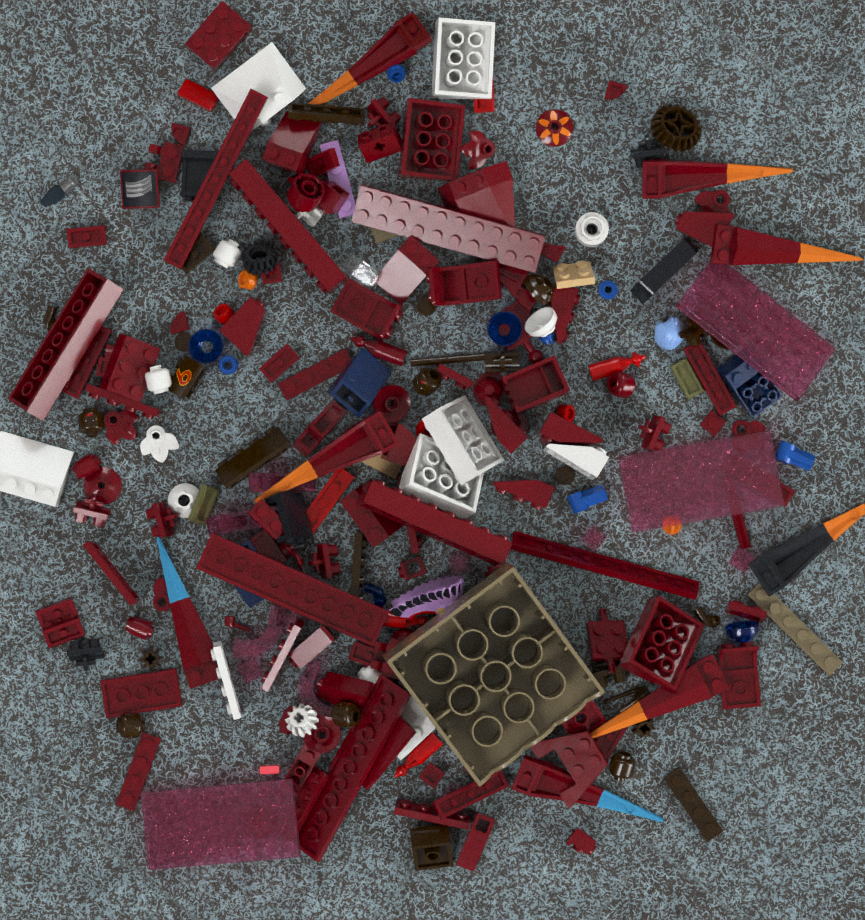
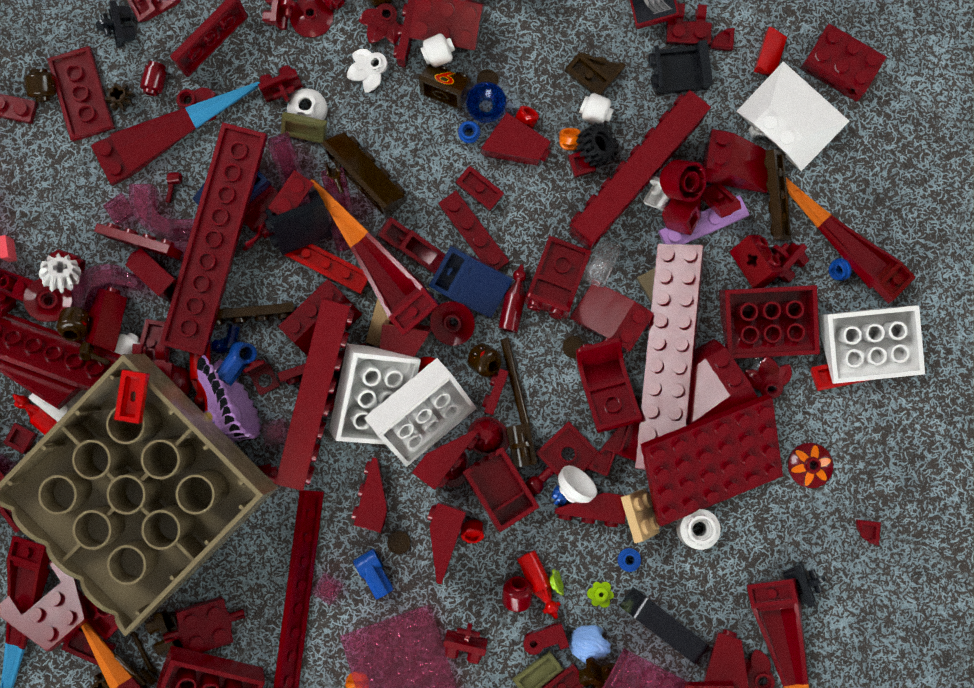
camera: 80 degrees right, 5 degrees down
(179, 324) = (507, 72): dark red tile -> none
(215, 178) = (682, 79): dark red plate -> none
(228, 688) = (97, 185): white plate -> none
(255, 480) = (334, 173): none -> dark brown hand
(322, 562) = (248, 279): dark red hips -> none
(373, 705) = (86, 353): none -> dark brown hand
(396, 587) = (234, 364): none -> blue piece
(430, 662) = (126, 407): none -> red piece
(504, 318) = (574, 438): clear blue piece -> none
(538, 209) = (712, 459): none -> dark red plate
(540, 288) = (617, 476): dark brown piece -> none
(583, 459) = (417, 563): white slope -> none
(616, 352) = (556, 582): none -> lime plant
(622, 765) = (55, 667): dark brown head -> none
(631, 323) = (593, 593): none -> lime plant
(660, 375) = (545, 637): none -> dark red leg
(676, 128) = (841, 614): dark brown gear -> none

